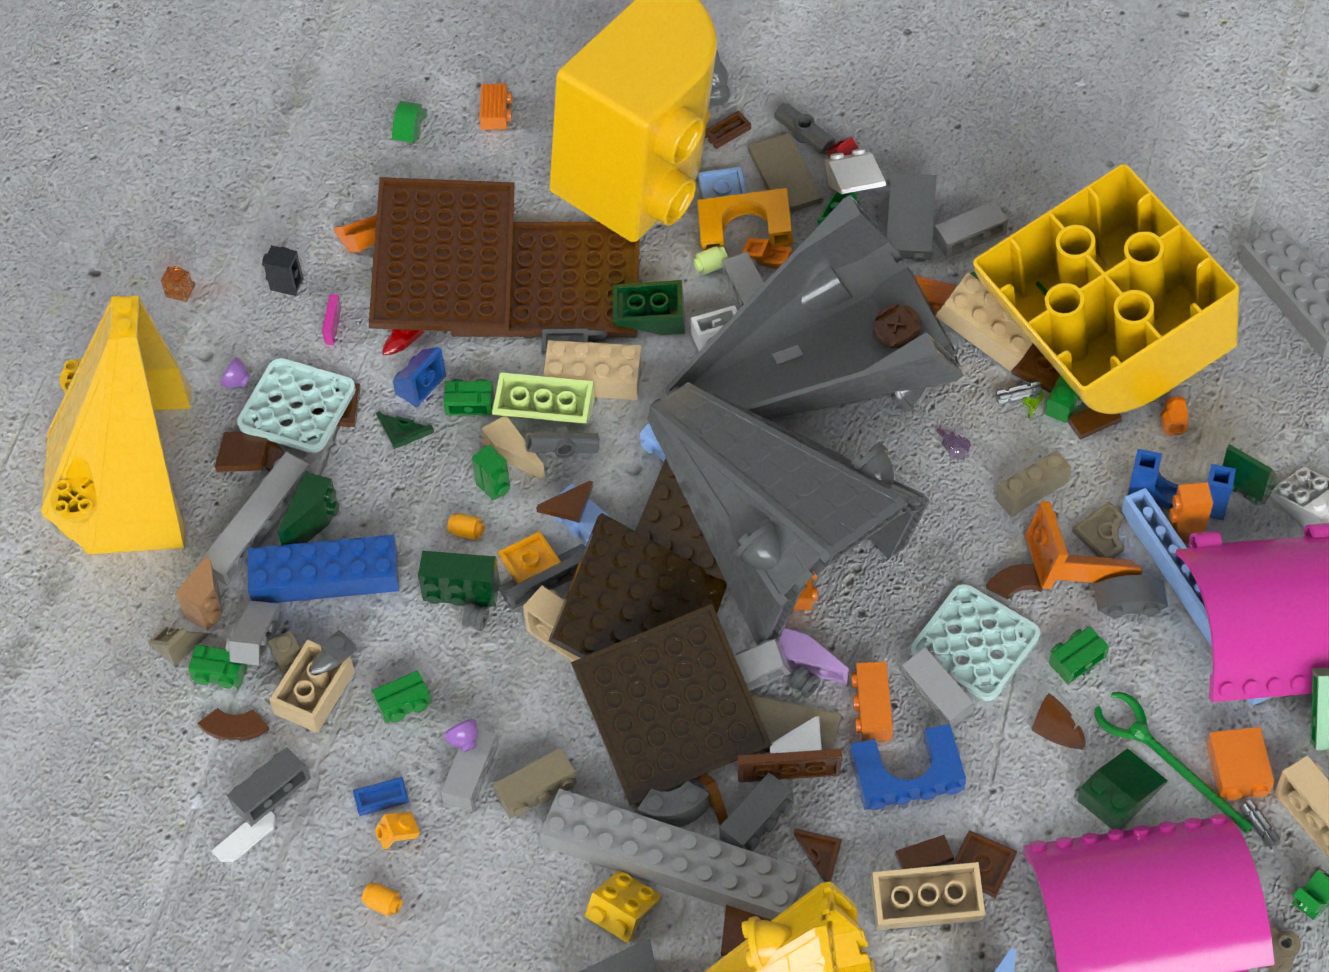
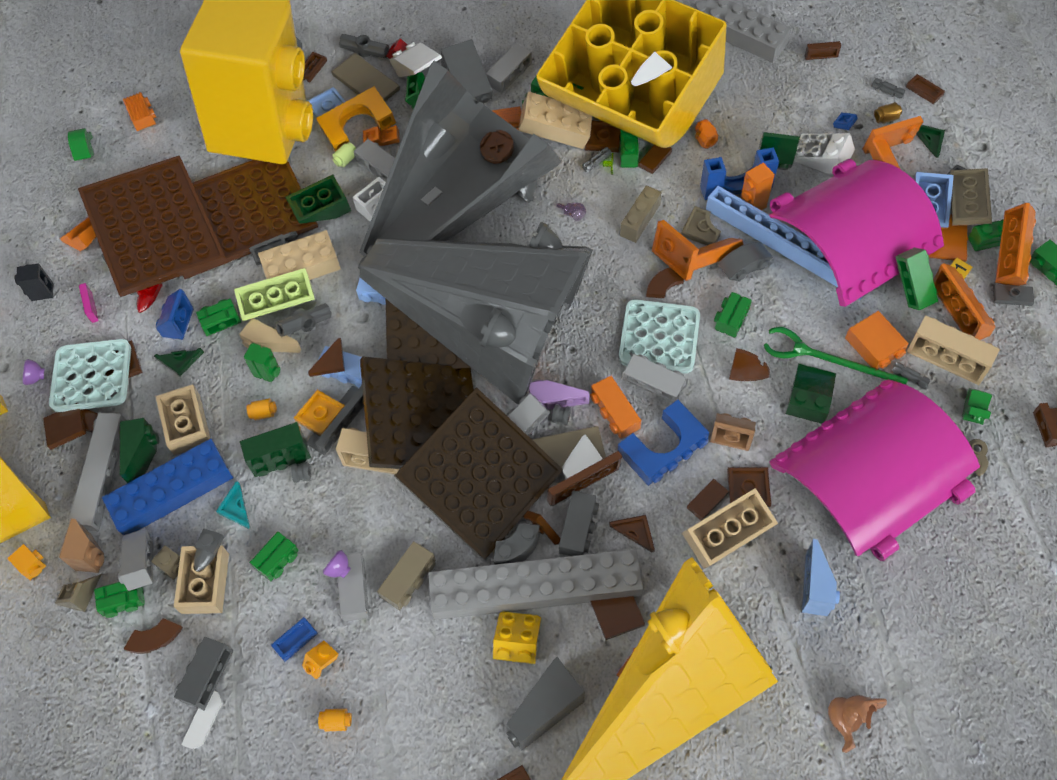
camera: 25 degrees left, 5 degrees up
(139, 584) = (27, 561): none -> light orange brick
(374, 499) = (182, 419): none -> tan brick
(384, 623) = (234, 506): none -> teal tile
(996, 790) = (733, 431): none -> medium nougat slope
(1114, 309) = (650, 69): none -> white sticker

